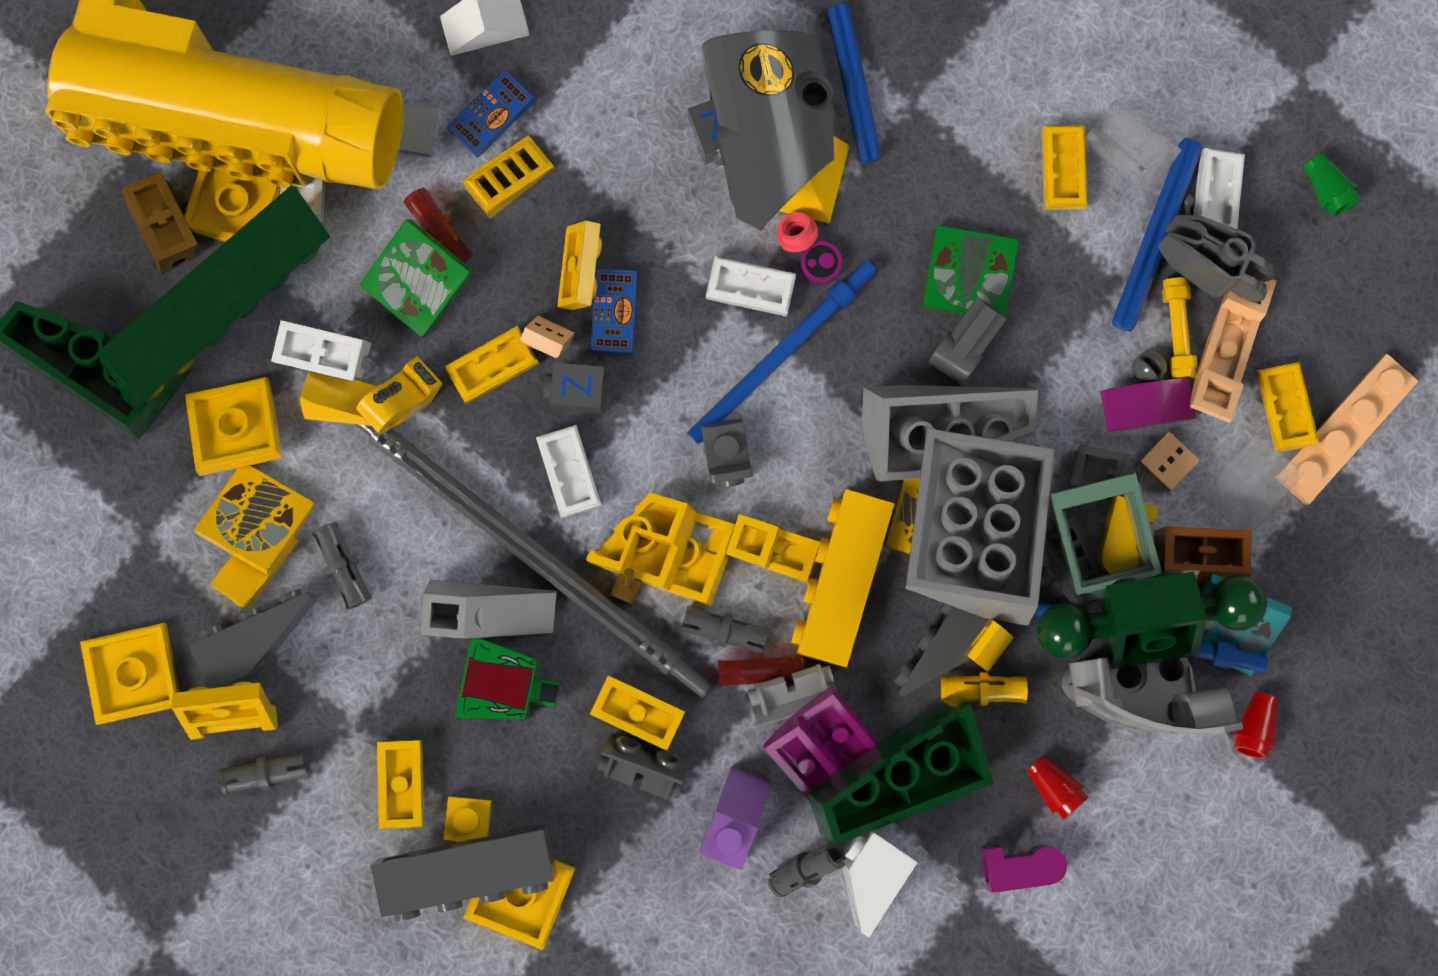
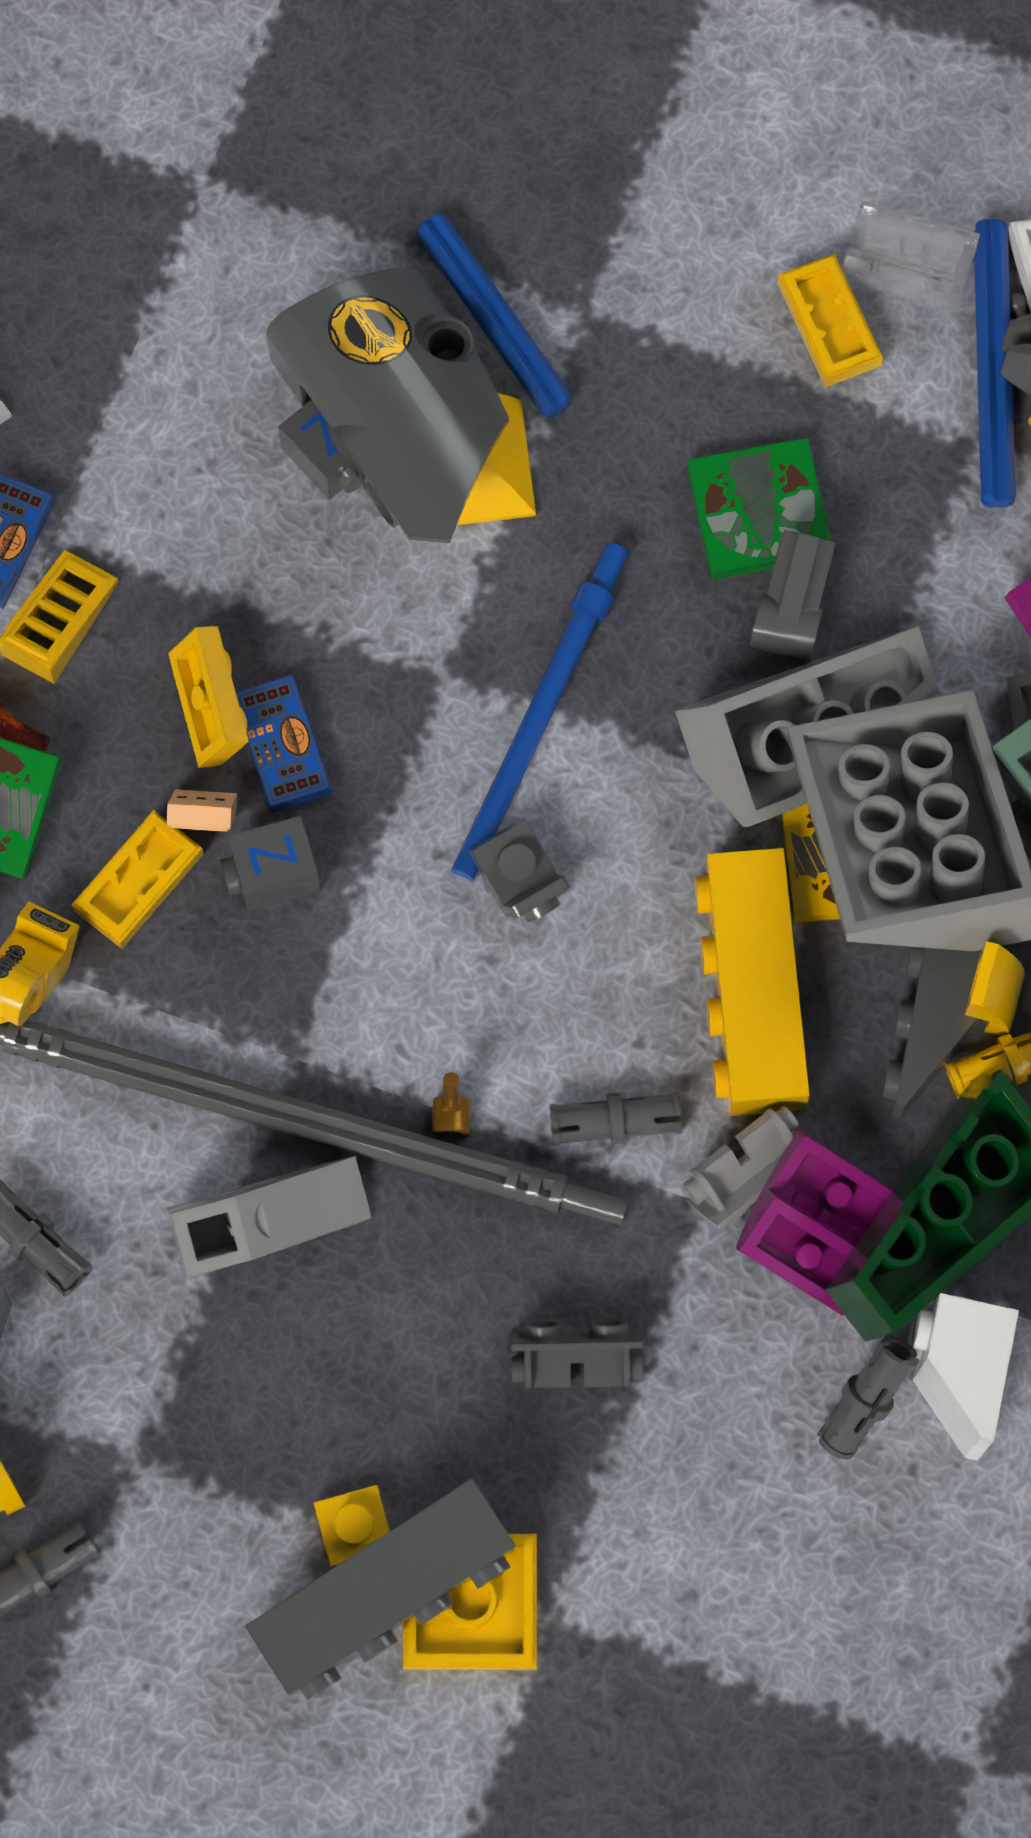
camera: 20 degrees left, 10 degrees down
(400, 784) = (237, 1511): yellow plate -> none
(502, 684) = (329, 1312): torso -> none
(568, 471) = (306, 984): white plate -> none
(637, 713) = (538, 1280): yellow plate -> none
(655, 547) = (471, 1031): yellow slope -> none
(730, 670) = (687, 1151): clear red pin -> none
(735, 818) = (738, 1371): medium lavender slope -> none
(750, 286) = (461, 636): white plate -> none
(773, 548) = (638, 983): yellow slope -> none
(797, 223) = (495, 540): coral plate -> none
(821, 263) = (546, 570): tile -> none

